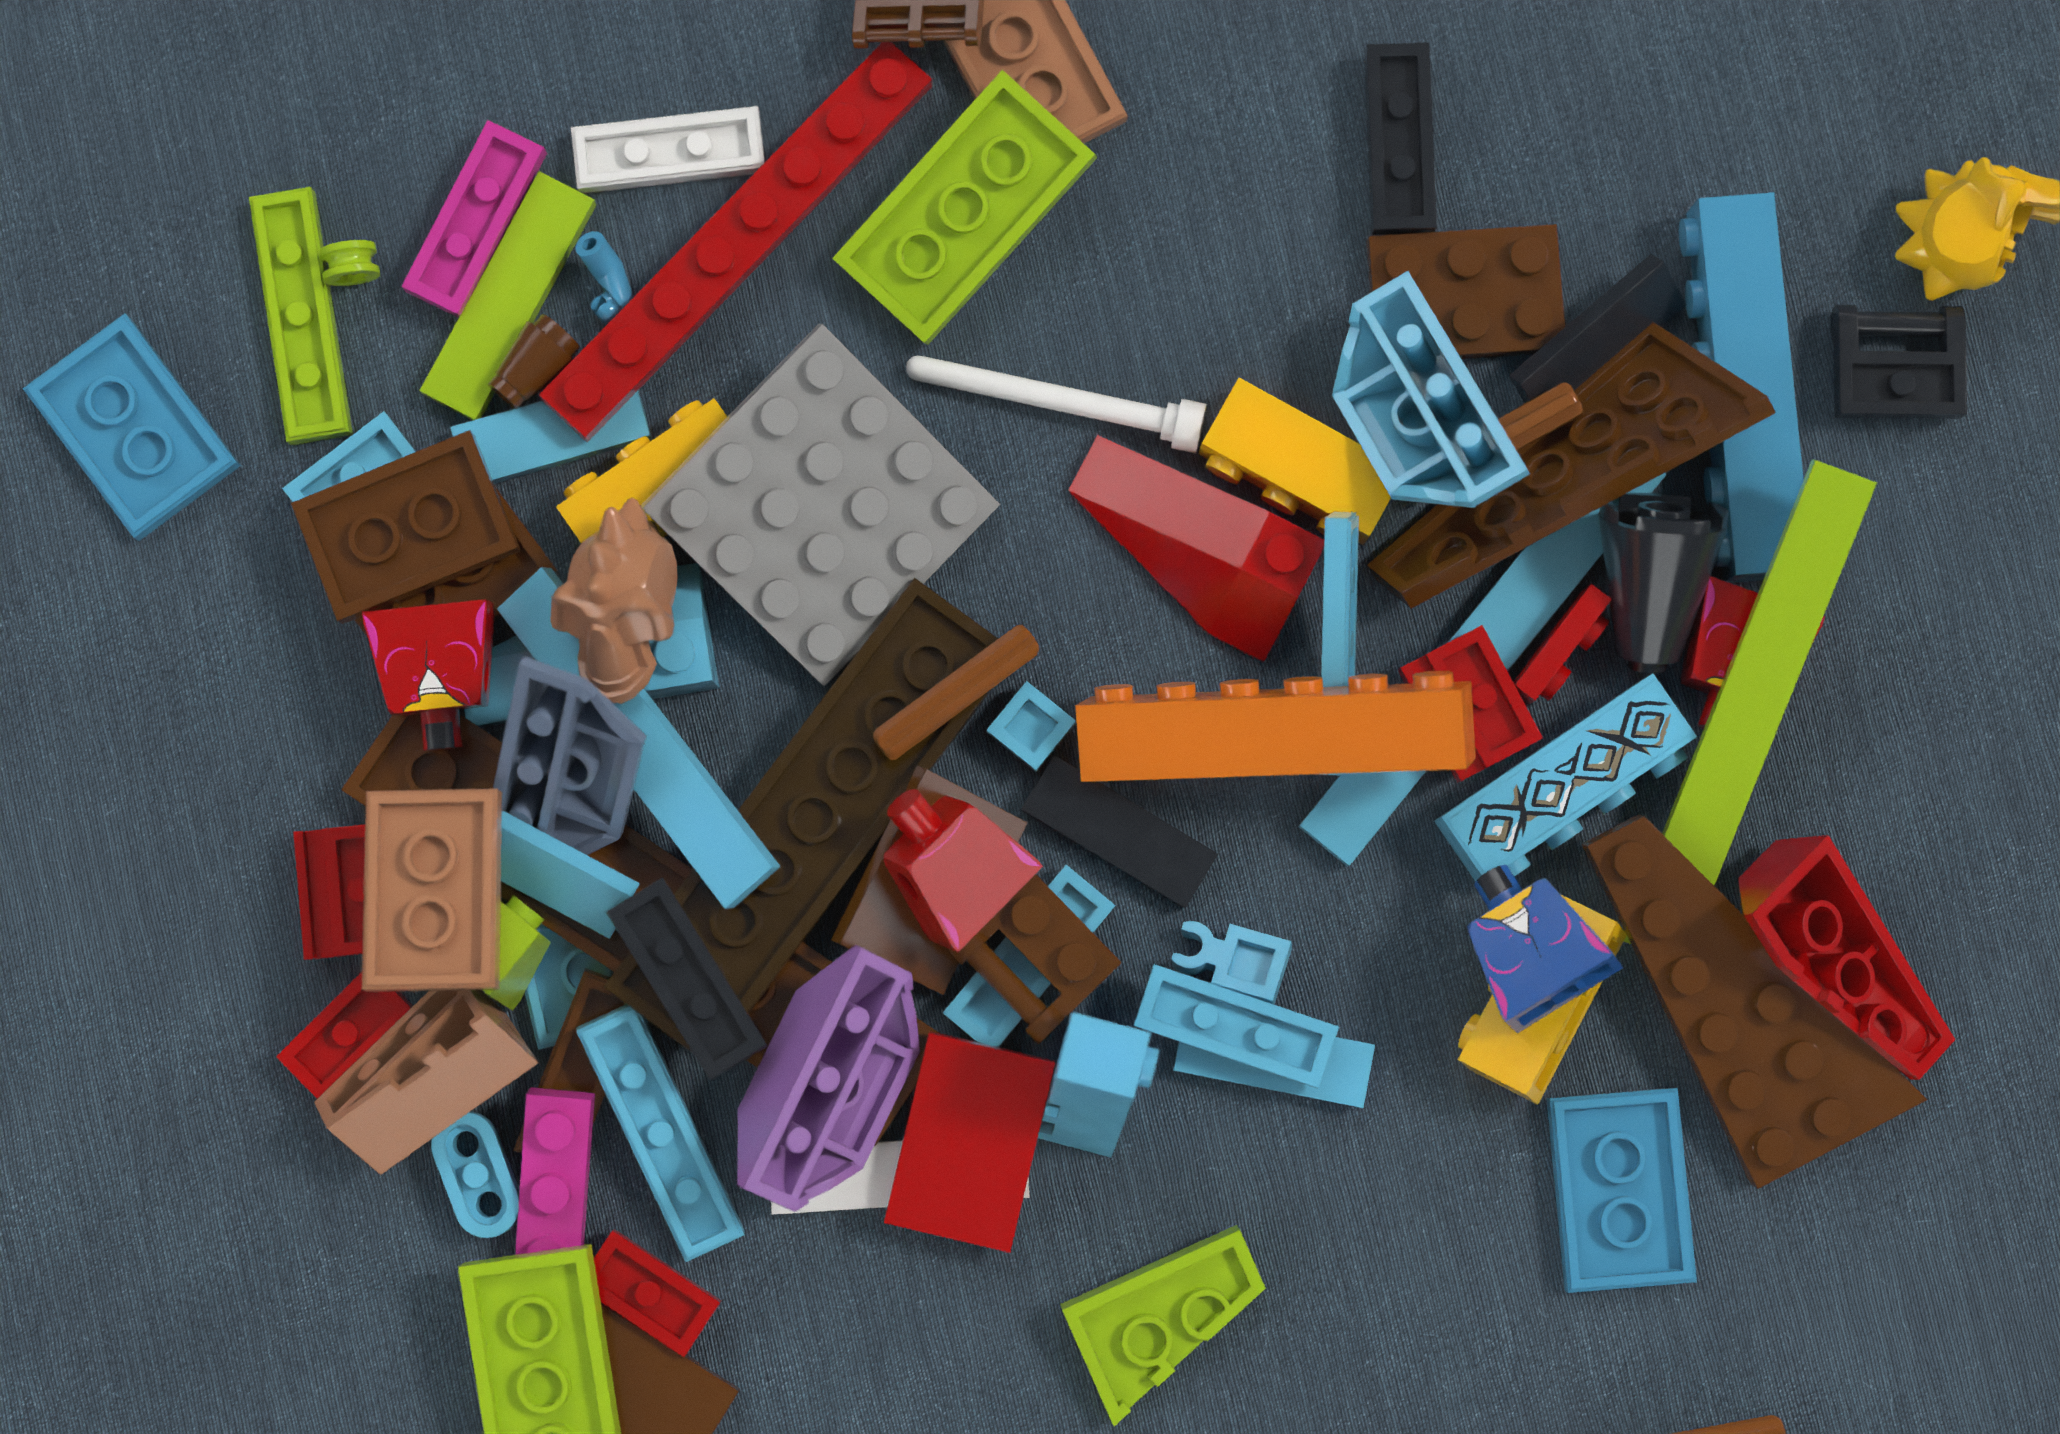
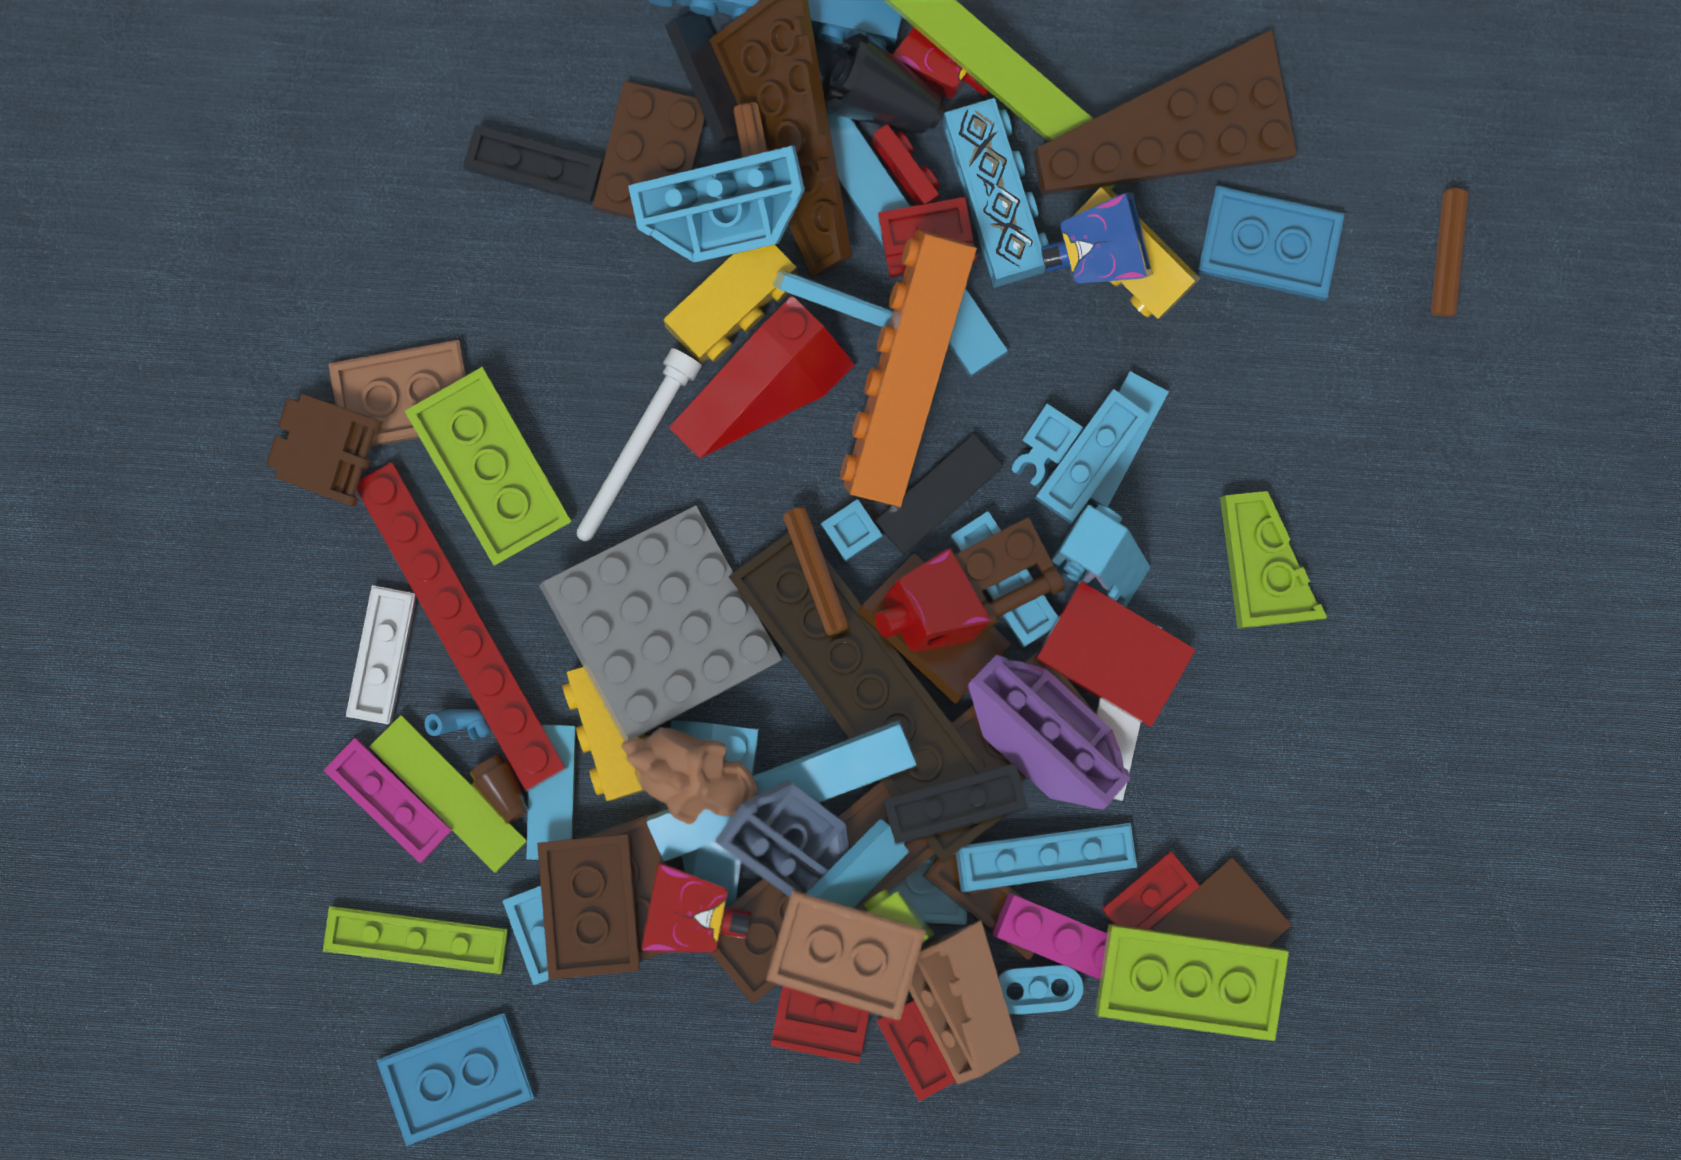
camera: 75 degrees left, 0 degrees up
(349, 262) = (391, 894): lime bush -> none
(1839, 950) = (1159, 52): red wedge -> none

